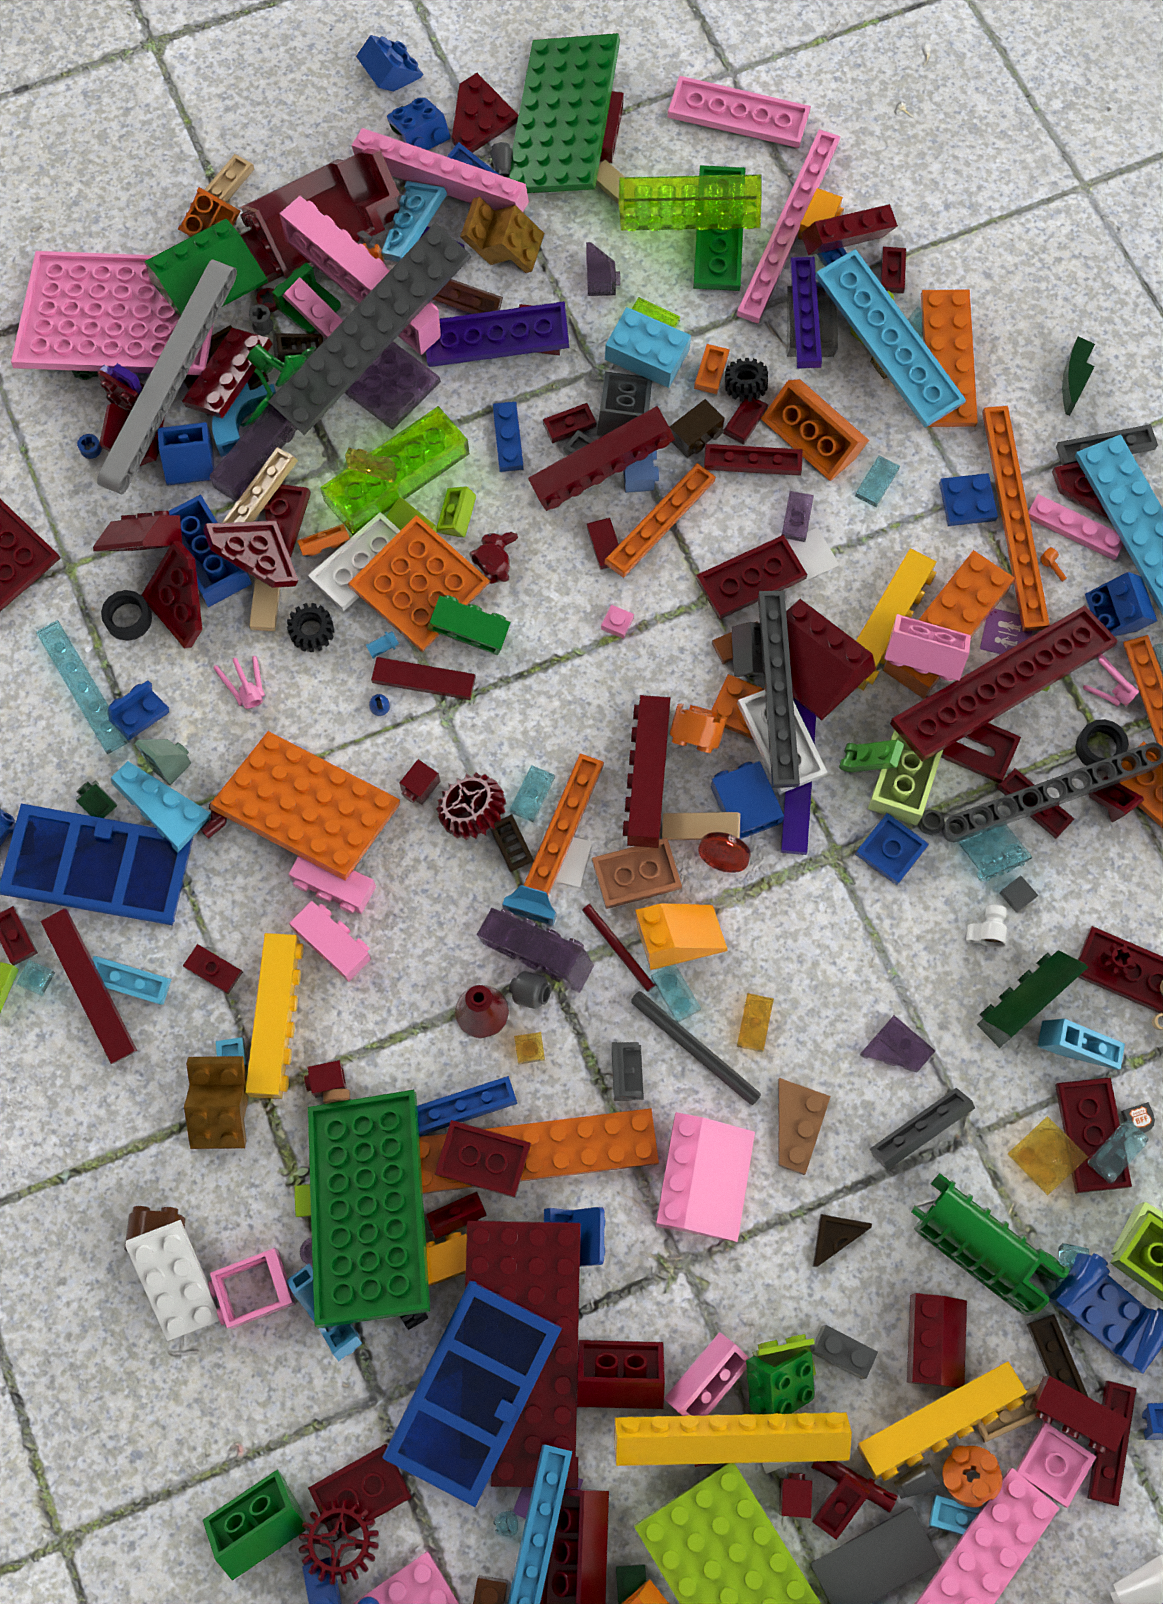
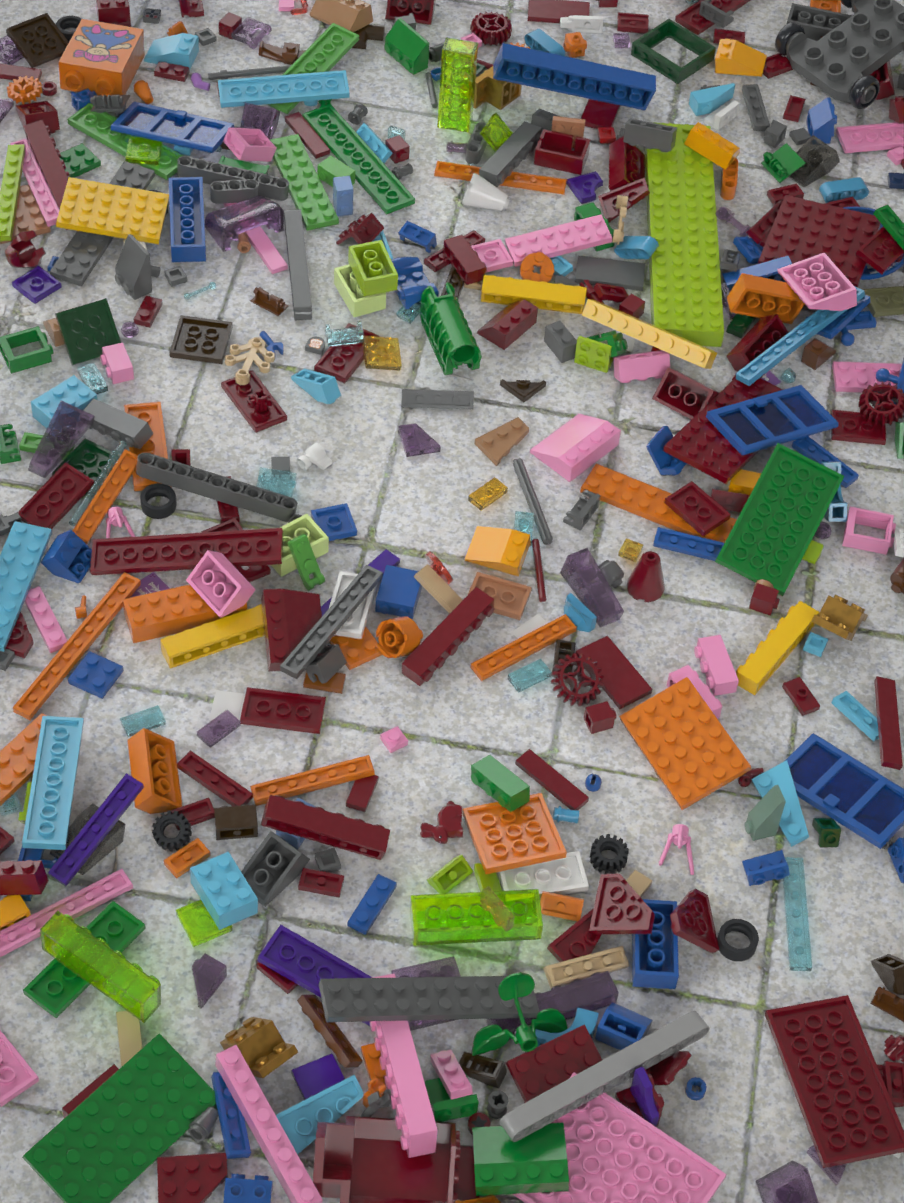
camera: 150 degrees left, 20 degrees down
(140, 532) = (701, 964): dark red slope -> none
(364, 1382) = (815, 452): none -> blue plate
(443, 859) = (620, 679): none -> dark red tile
(1030, 997) = (325, 410): dark green slope -> none

